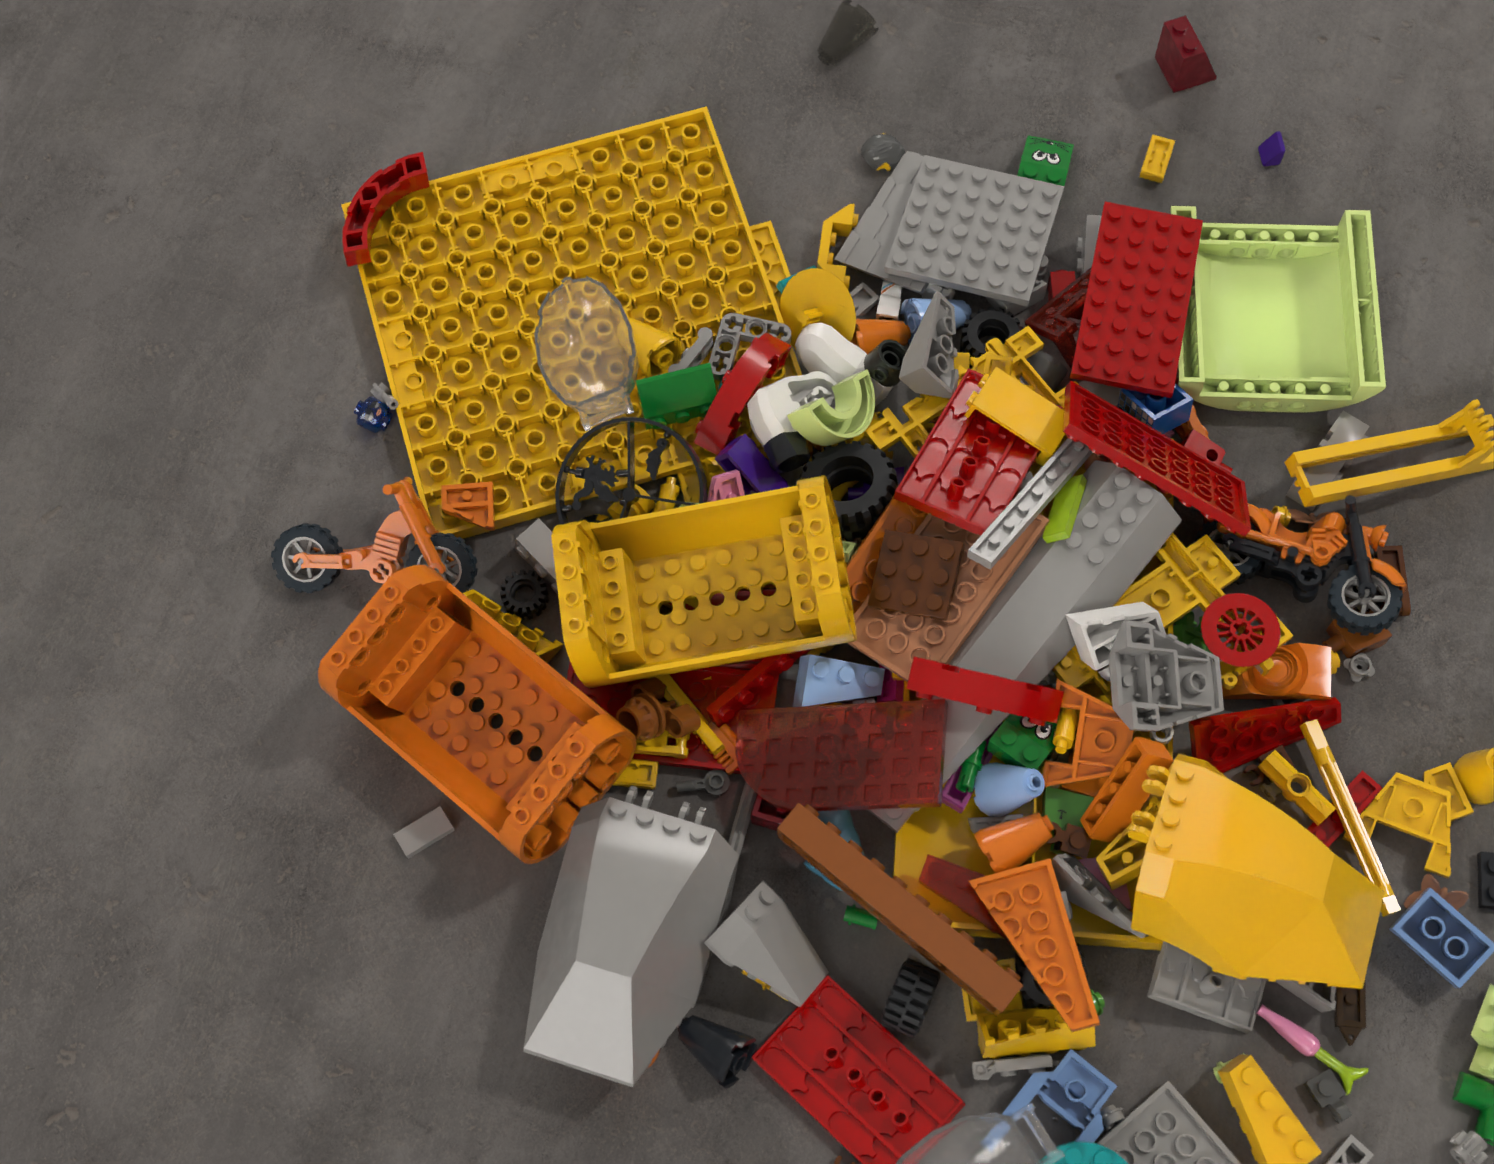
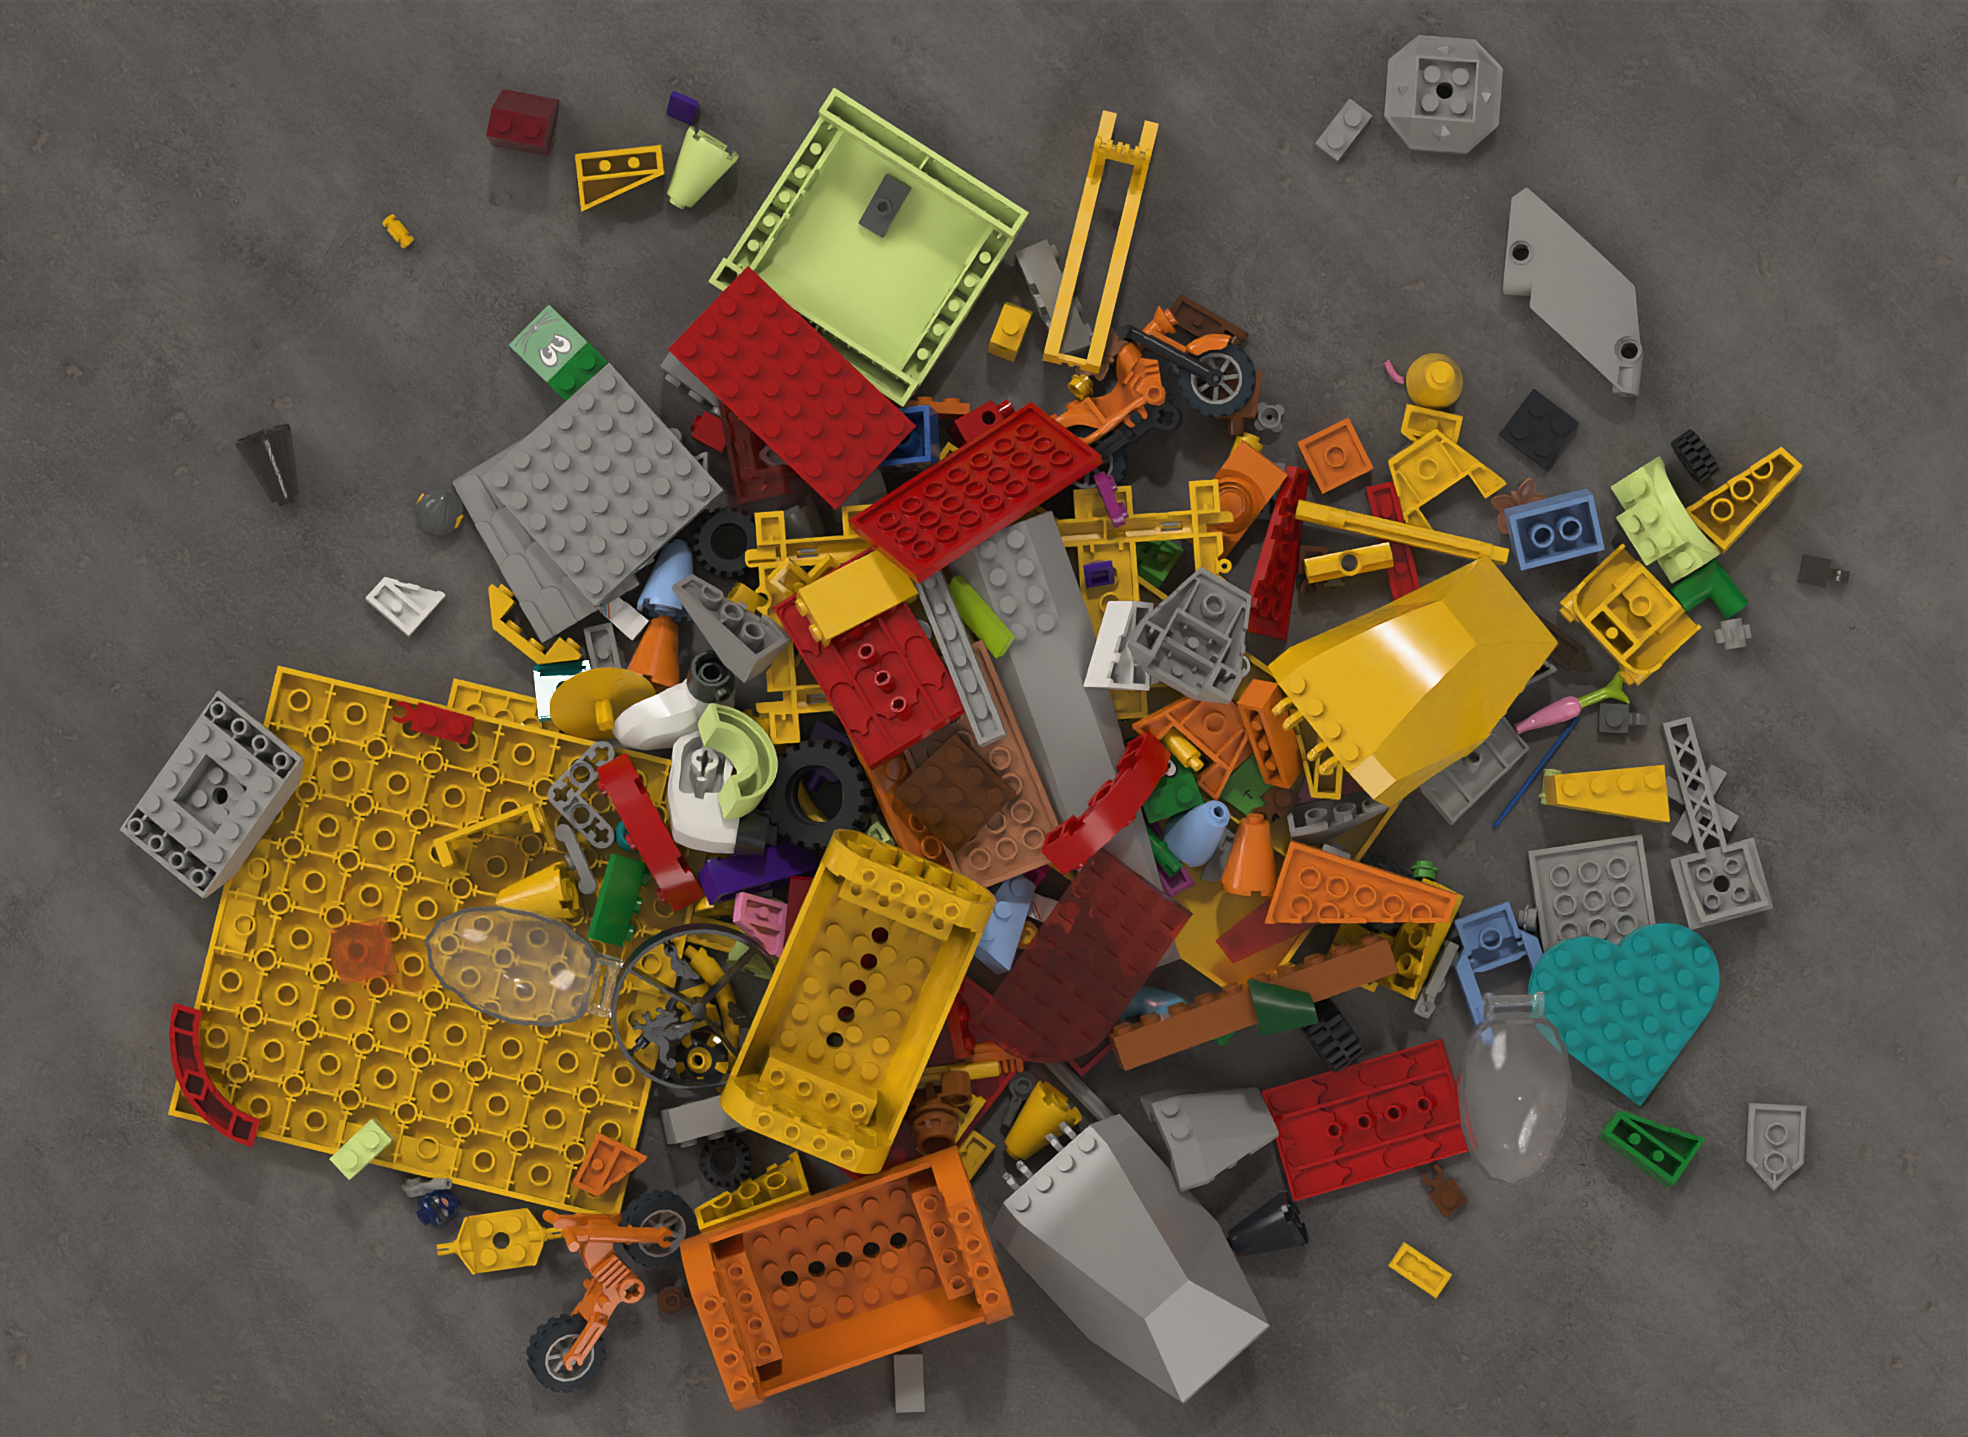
camera: 65 degrees left, 20 degrees up
(358, 459) = (478, 1249): none -> yellow plate
(386, 331) = (362, 1148): none -> yellowish green brick
(535, 258) = (364, 950): none -> clear orange tile
(587, 112) = (180, 812): none -> light grey slope
(648, 262) = (444, 846): none -> yellow panel
(707, 797) = (1040, 1116): none -> yellow cone
(732, 220) = (438, 722): none -> red plate
(802, 165) = (404, 603): none -> white wing
(909, 925) = (1280, 1007): none -> dark green slope
(1054, 30) = (398, 231): none -> yellow piece
(1157, 158) = (620, 232): yellow plate -> none
(1157, 585) = (1098, 573): none -> dark purple slope
(1197, 130) = (615, 171): none -> yellow wedge
(1215, 569) = (1115, 510): none -> magenta plate
(1236, 1050) = (1533, 775): none -> blue piece
(1239, 177) = (698, 167): none -> yellowish green cone
(1248, 605) = (1211, 507): red piece -> none
(1283, 439) = (1009, 331): none -> yellow torso
(1308, 307) = (885, 205): none -> dark grey plate
(1368, 733) = (1335, 455): none -> orange plate
(1418, 1048) = (1629, 615): none -> yellow piece
(1461, 747) = (1398, 378): none -> bright pink leg

